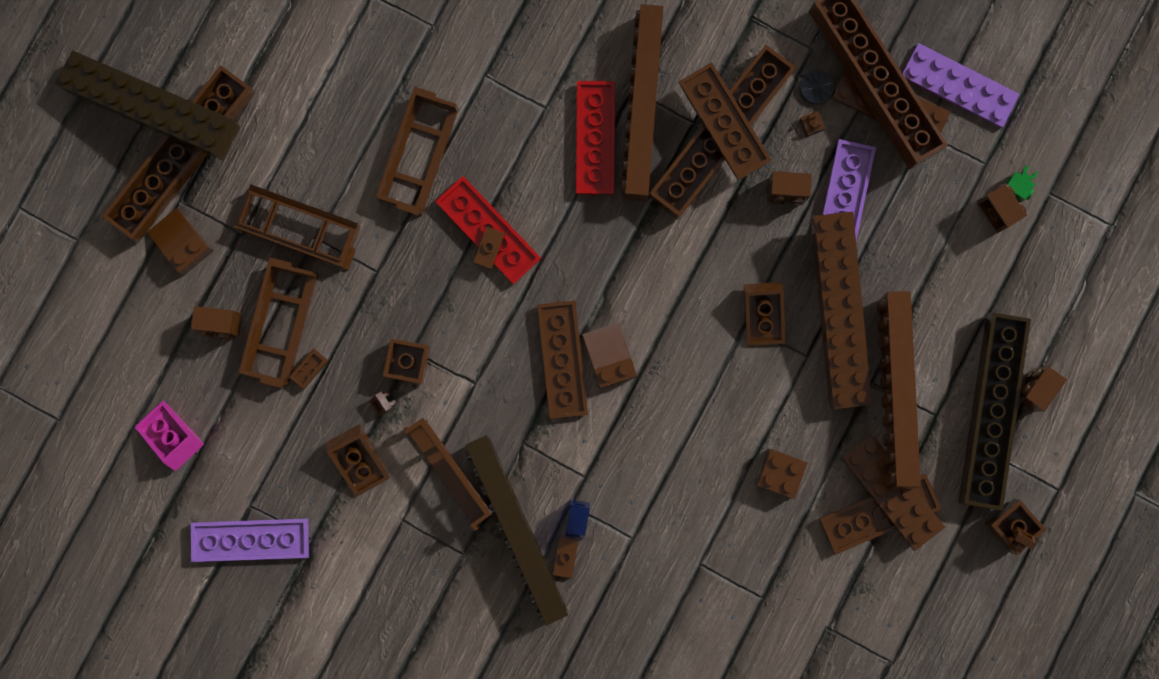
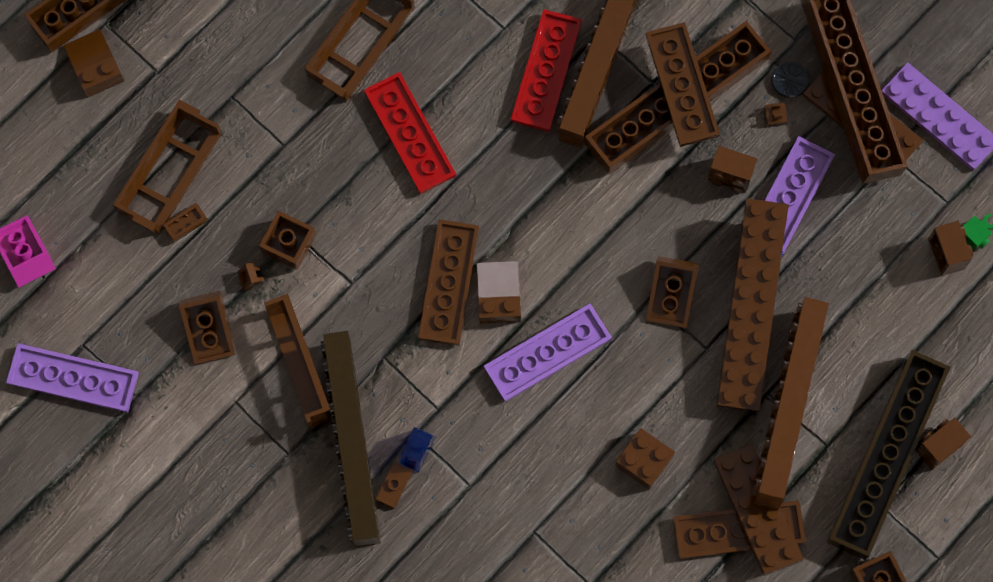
camera: 20 degrees right, 10 degrees down
(216, 321) = (106, 148): reddish brown brick -> none
(348, 250) = (251, 125): reddish brown piece -> none
(489, 248) = (405, 149): reddish brown plate -> none
(668, 400) = (547, 352): none -> medium lavender plate

